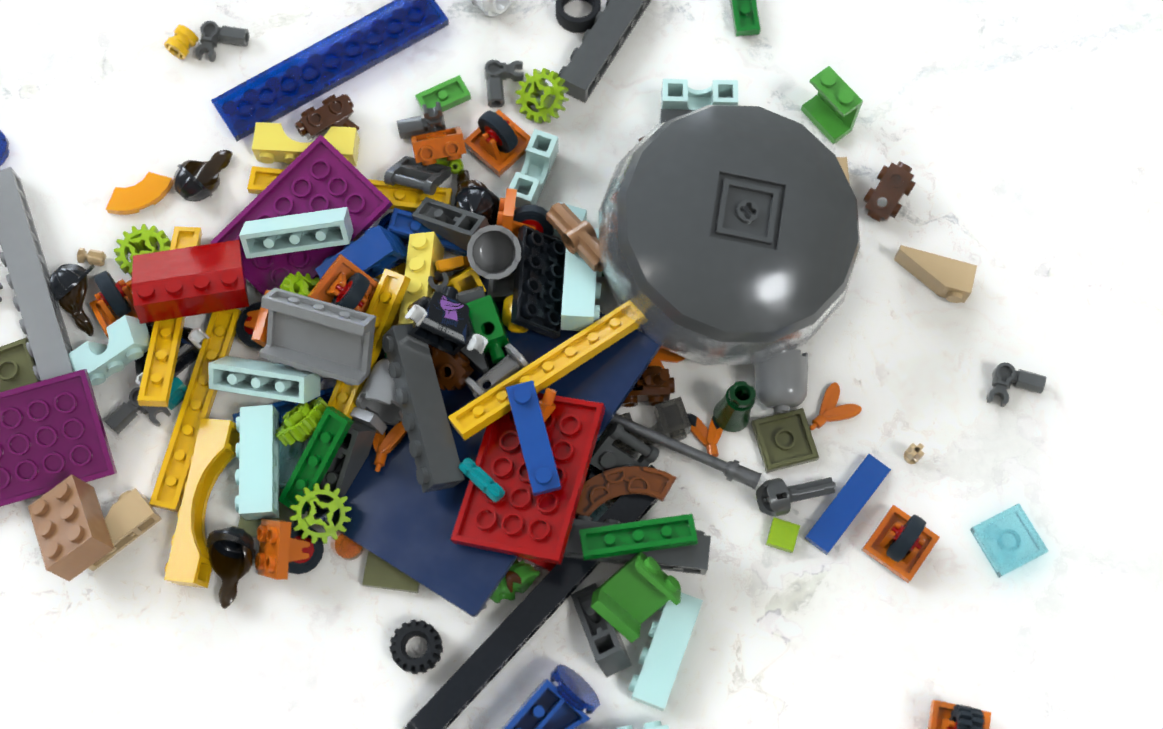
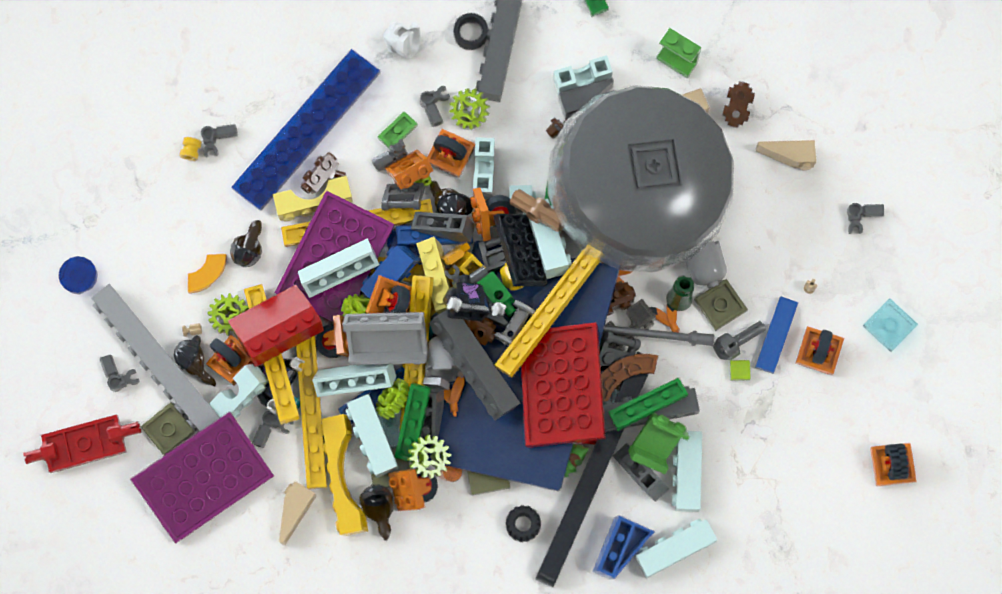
camera: 15 degrees left, 5 degrees up
(70, 528) = (263, 521): medium nougat brick -> none
(481, 479) = (532, 399): teal axle -> none
(493, 252) = (484, 240): light grey cylinder -> none
(533, 438) = (558, 361): blue plate -> none
(547, 405) = (557, 339): orange bar -> none
(575, 689) = (638, 516): clear blue tile -> none
(829, 411) = (746, 275): orange piece -> none

